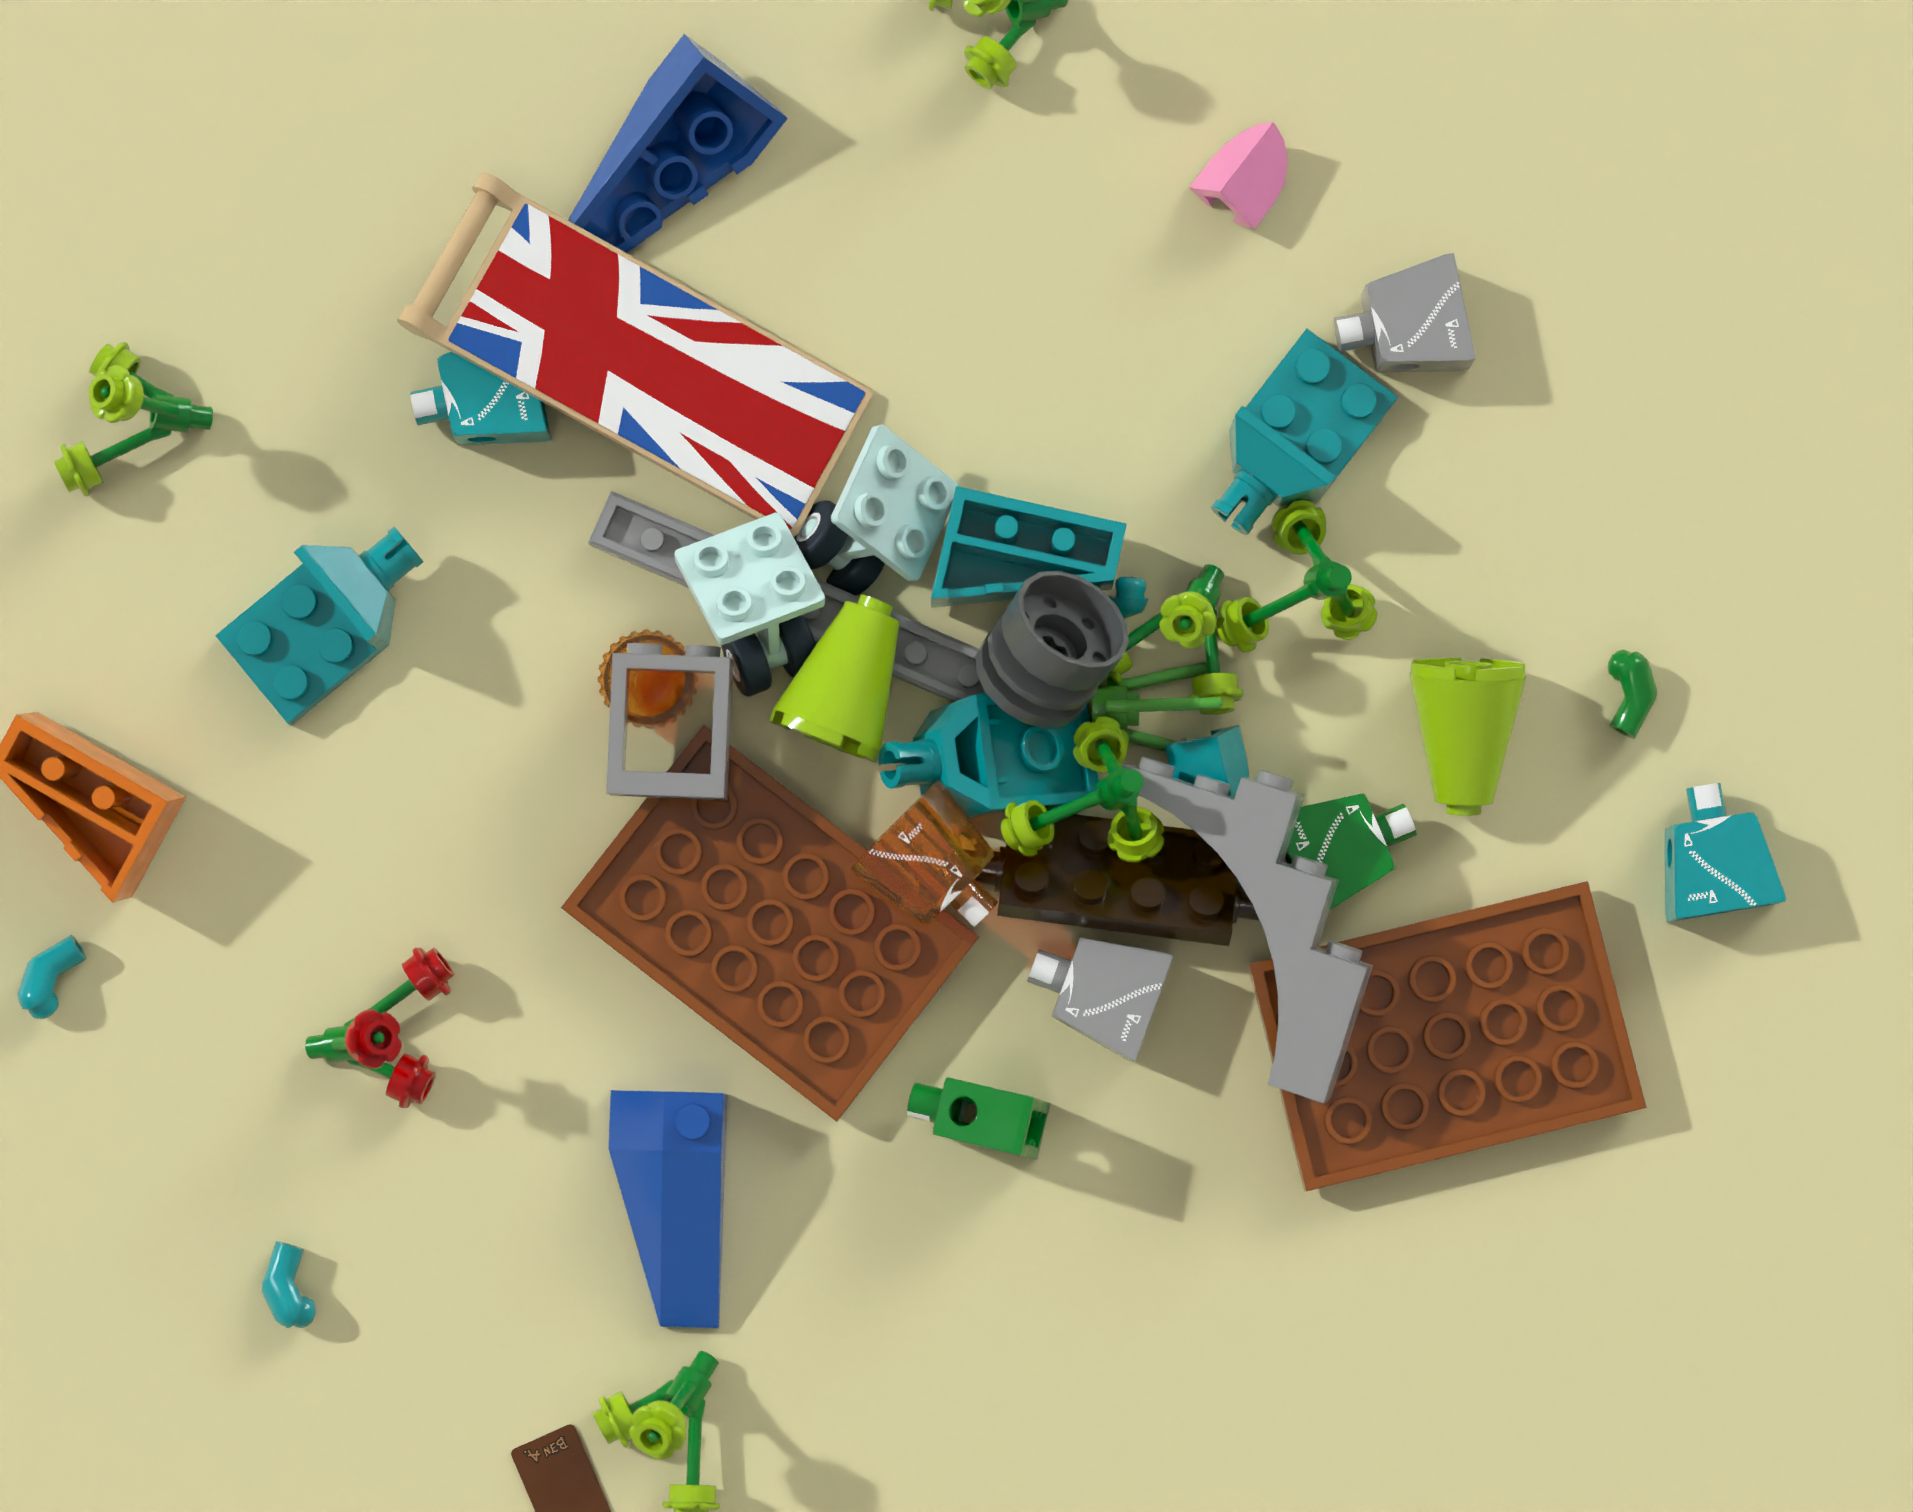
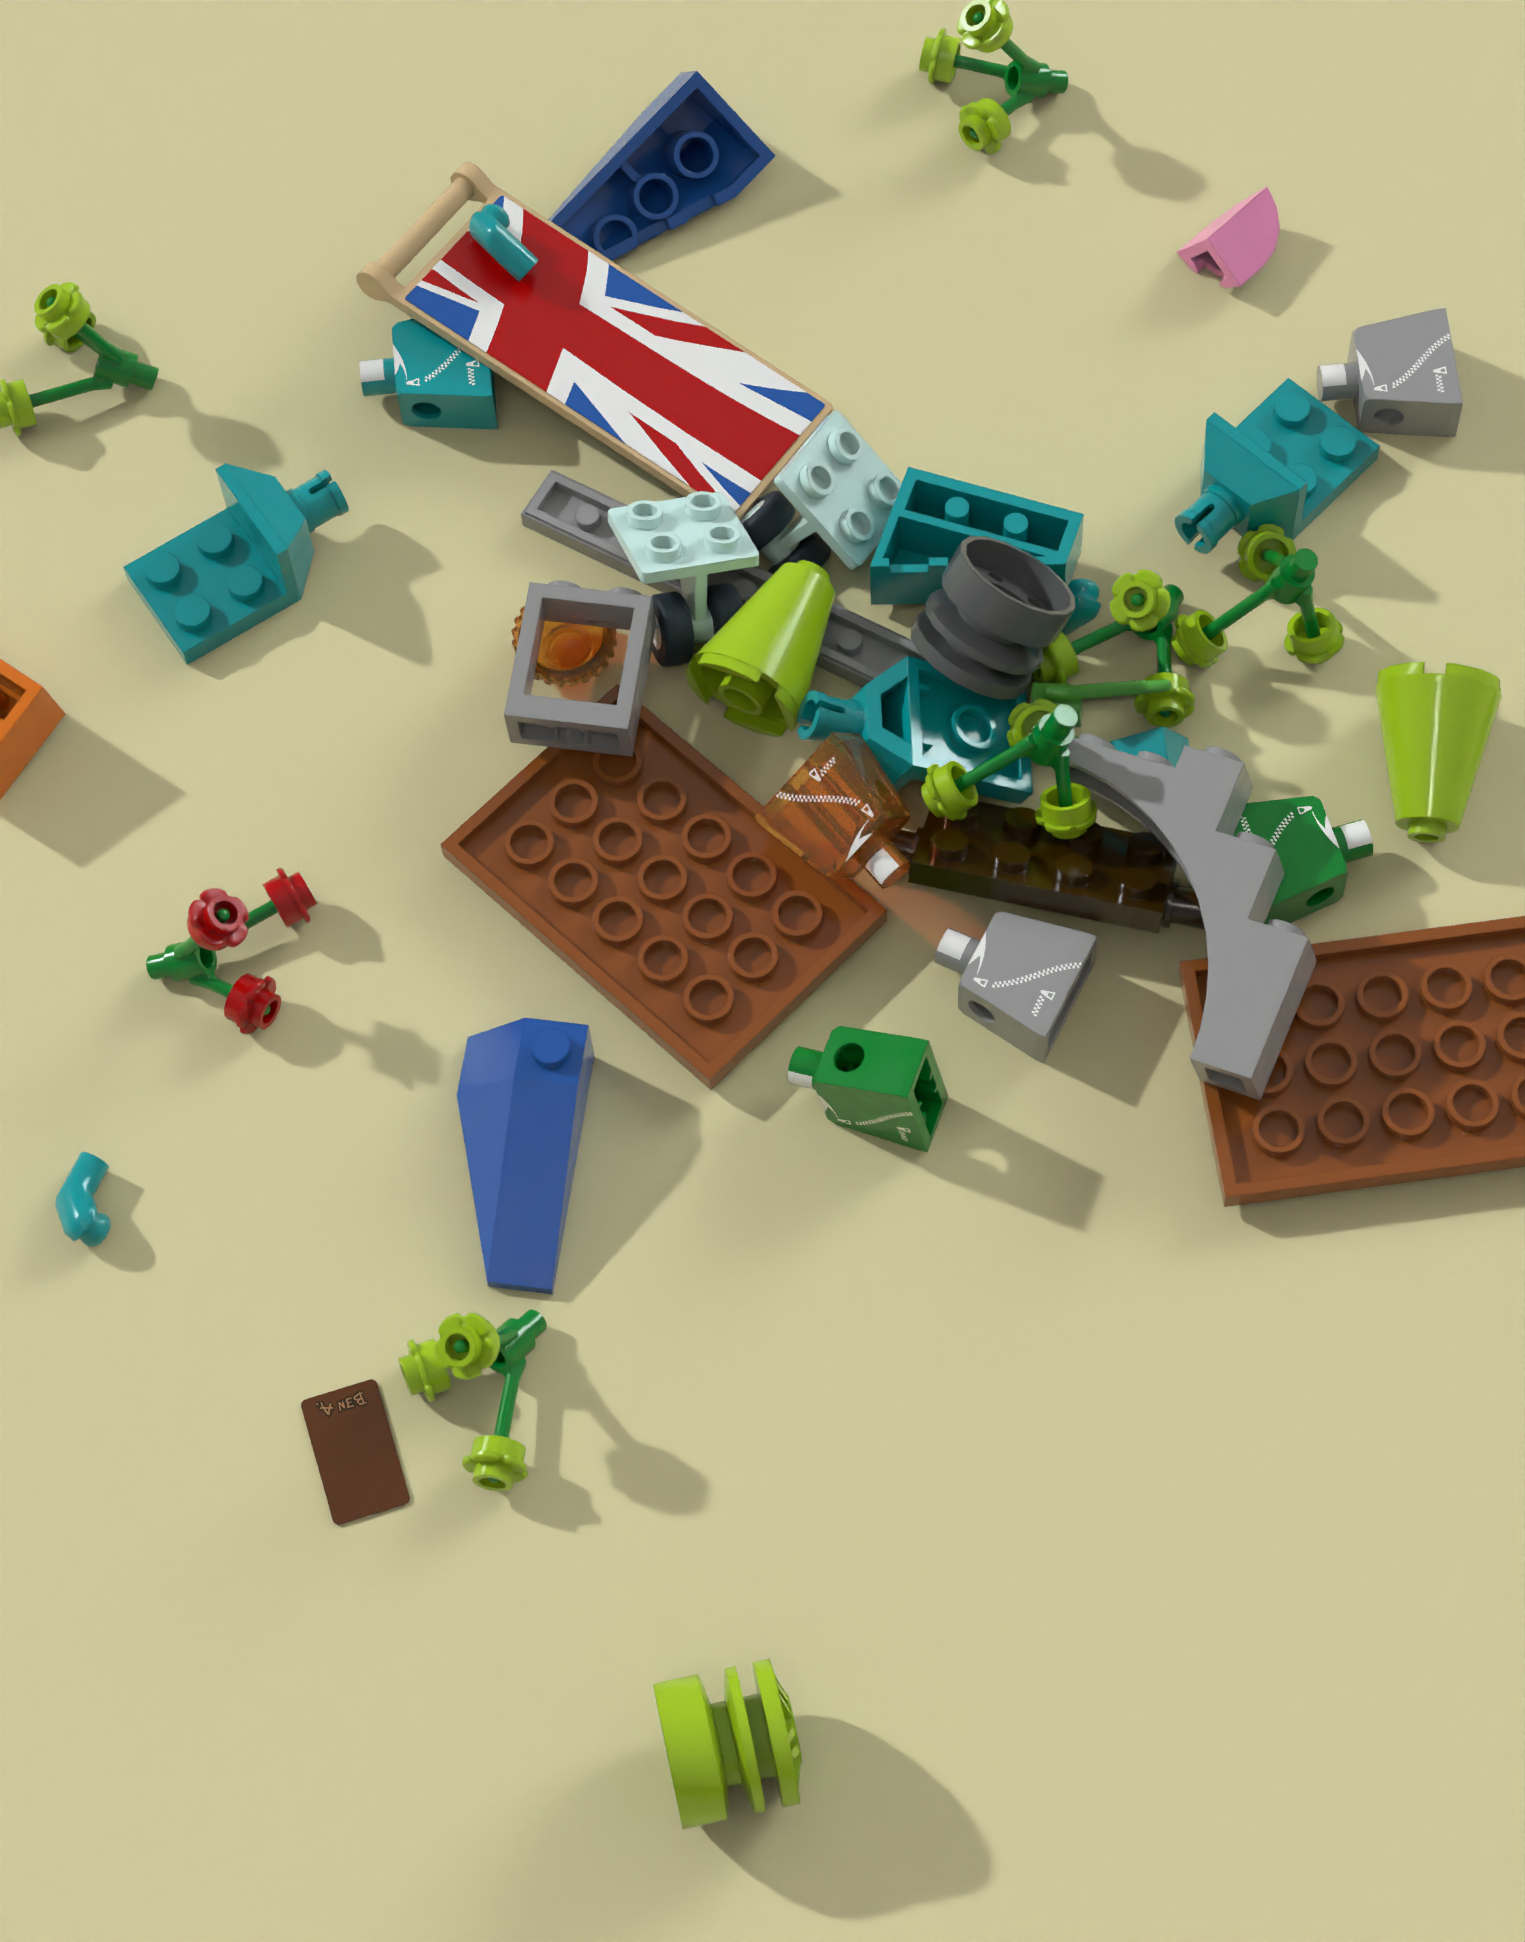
camera: 10 degrees right, 20 degrees down
(534, 273) = (490, 232): none -> teal arm

